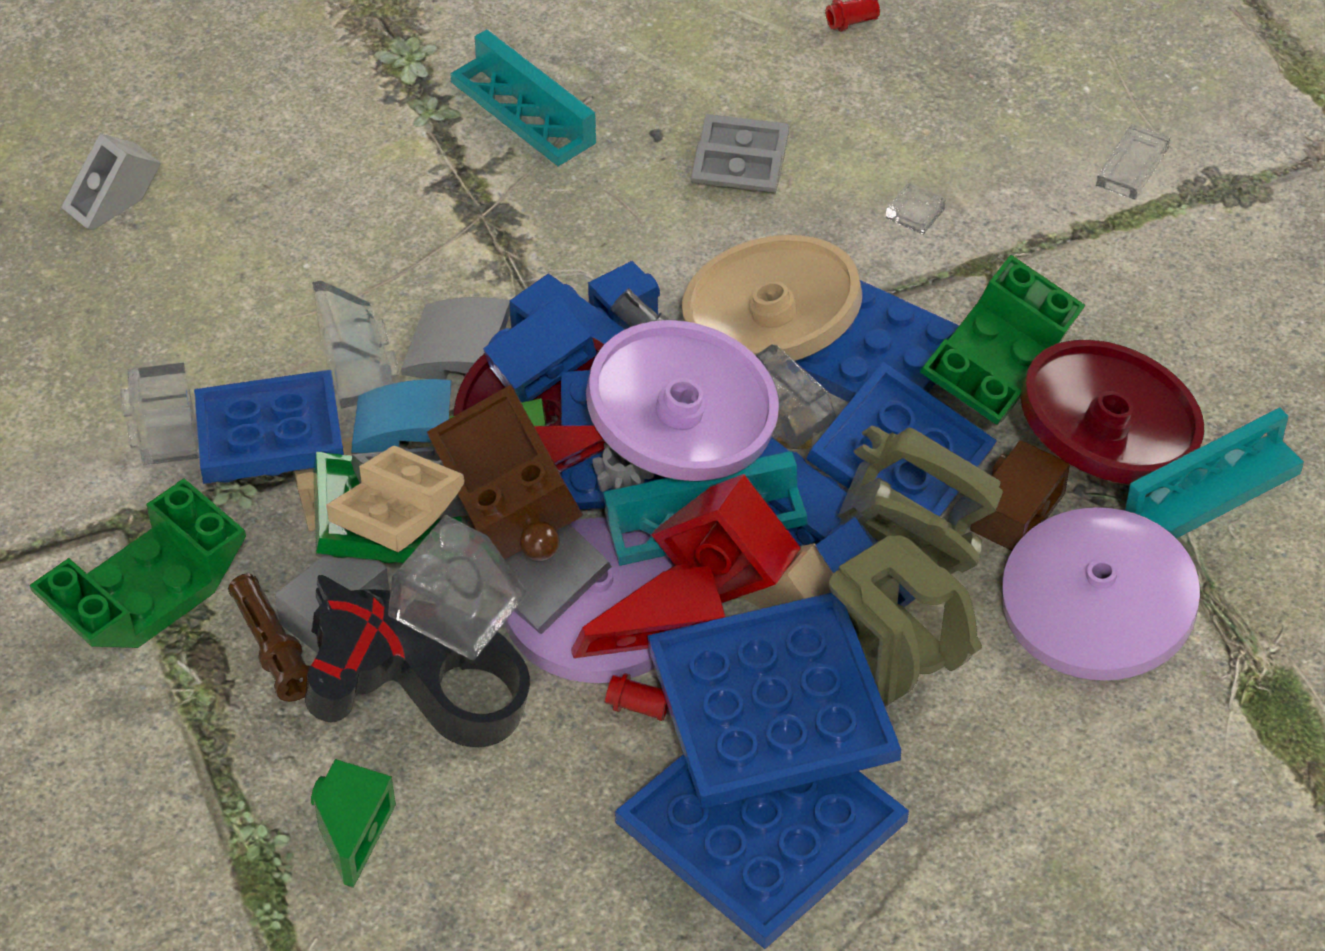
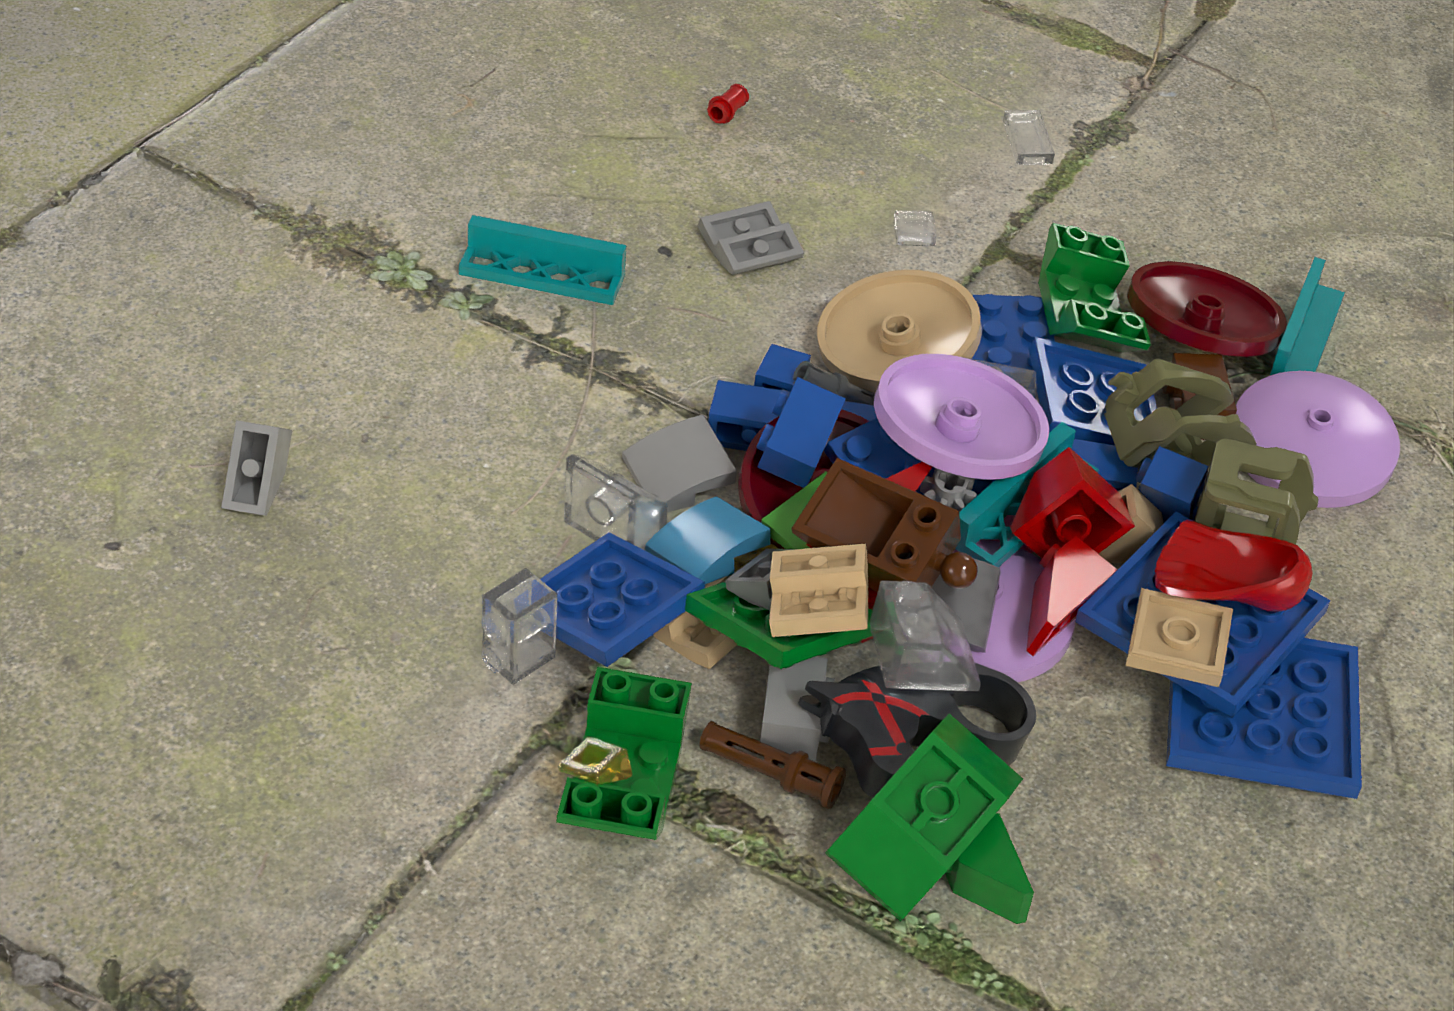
camera: 40 degrees left, 5 degrees down
(105, 559) = (597, 762): none -> clear yellow slope
(329, 737) = (924, 817): none -> green slope
(636, 697) = (1081, 667): red pin -> none
(708, 707) = (1180, 637): none -> tan tile
(813, 666) = (1233, 567): none -> red hair

